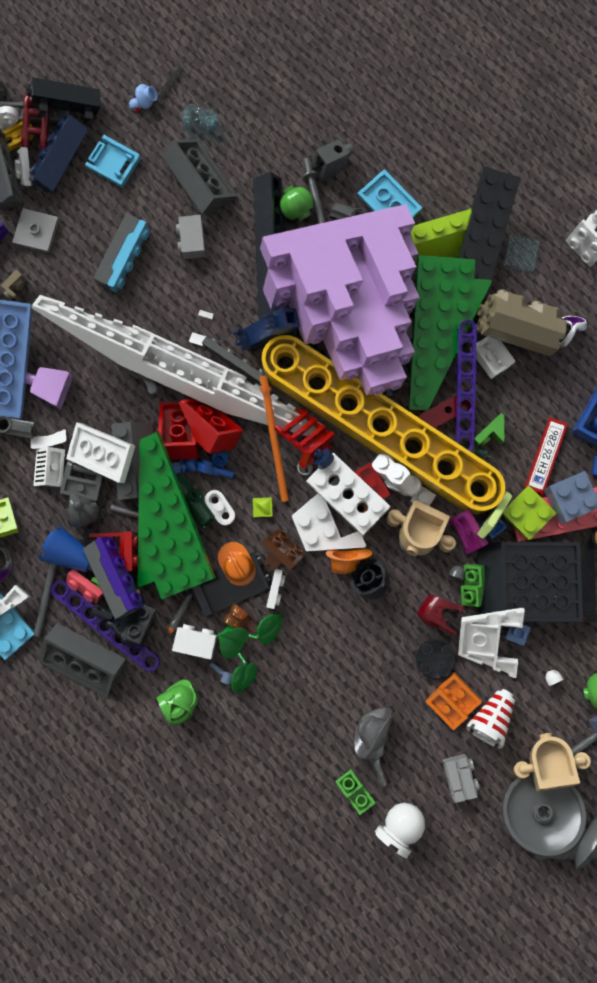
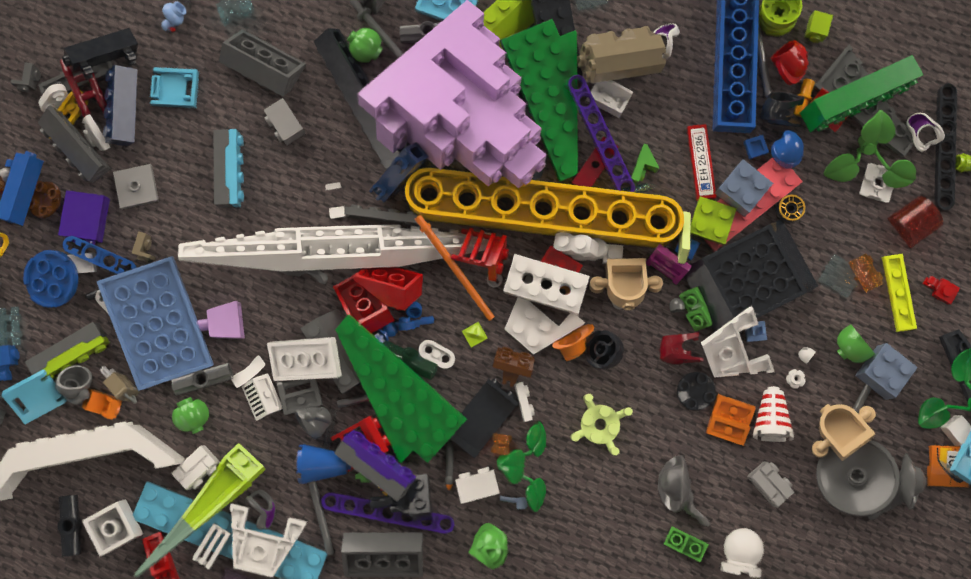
camera: 30 degrees left, 0 degrees up
(84, 586) = (351, 487): coral plate -> none
(236, 563) = (477, 397): orange piece -> none
(323, 458) = (508, 263): dark blue tile -> none
(336, 656) = (612, 424): none -> yellowish green plate
(527, 694) = (792, 382): none -> white plate

